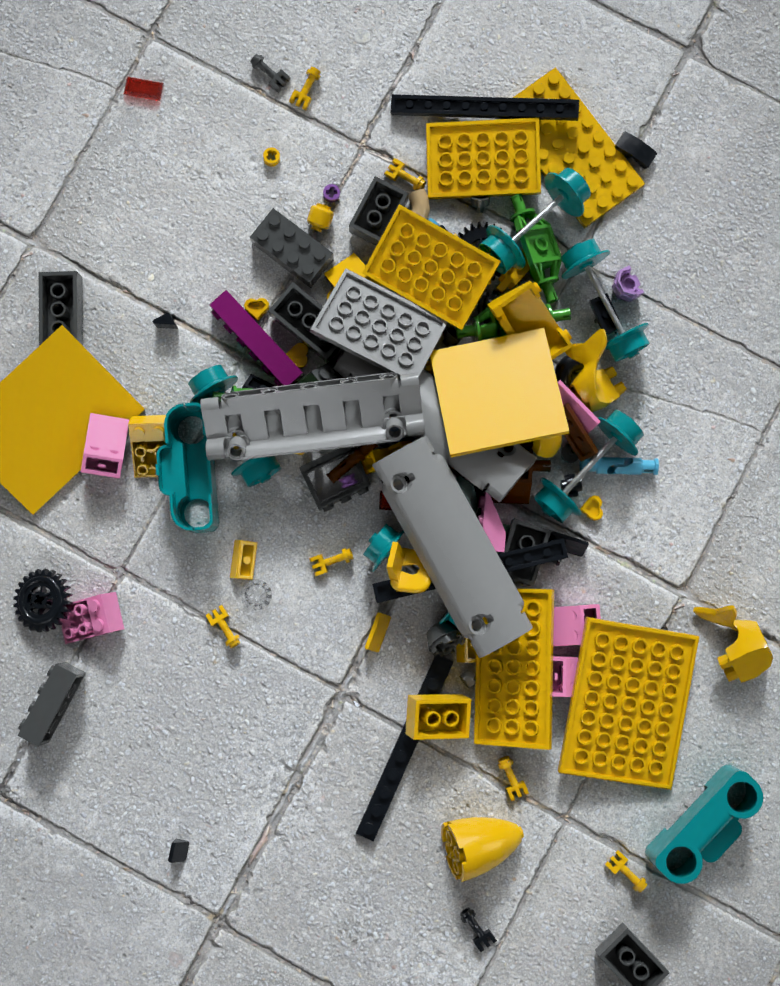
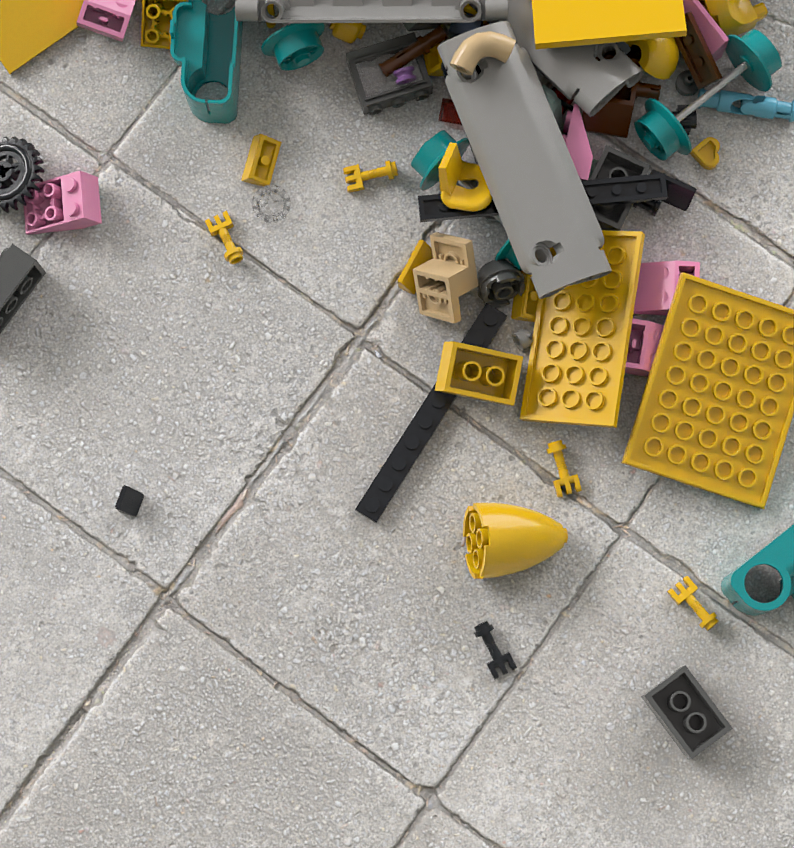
camera: 15 degrees right, 5 degrees down
(402, 642) = (445, 277): none -> tan bracket
(409, 464) = (480, 46): none -> tan cylinder

